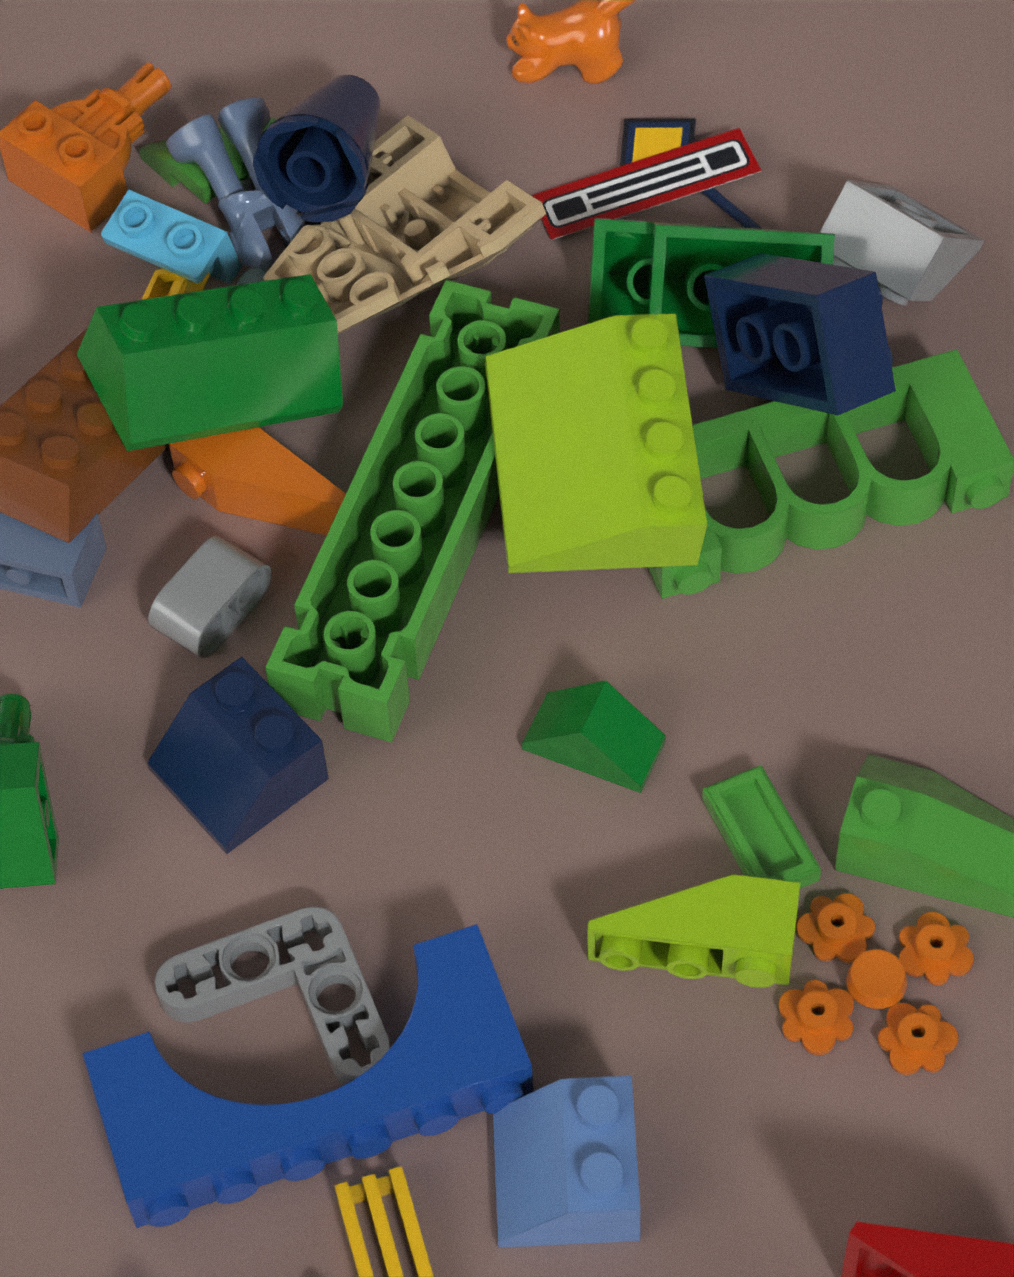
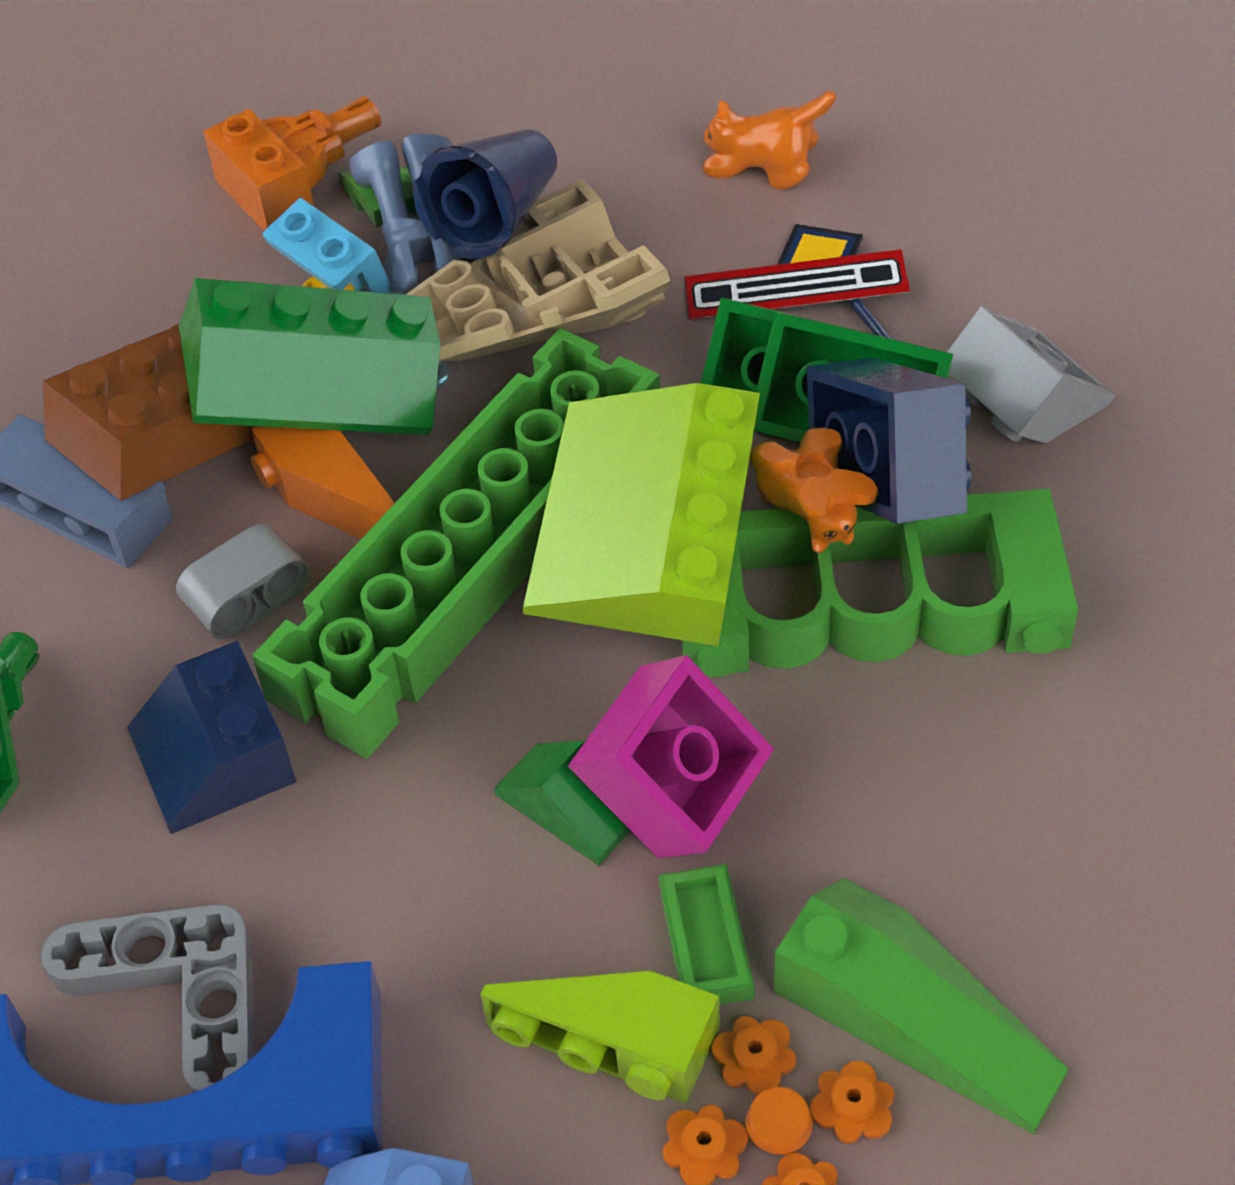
camera: 15 degrees right, 5 degrees down
(690, 678) = (672, 758): none -> dark pink brick
(743, 393) = (813, 485): none -> orange animal

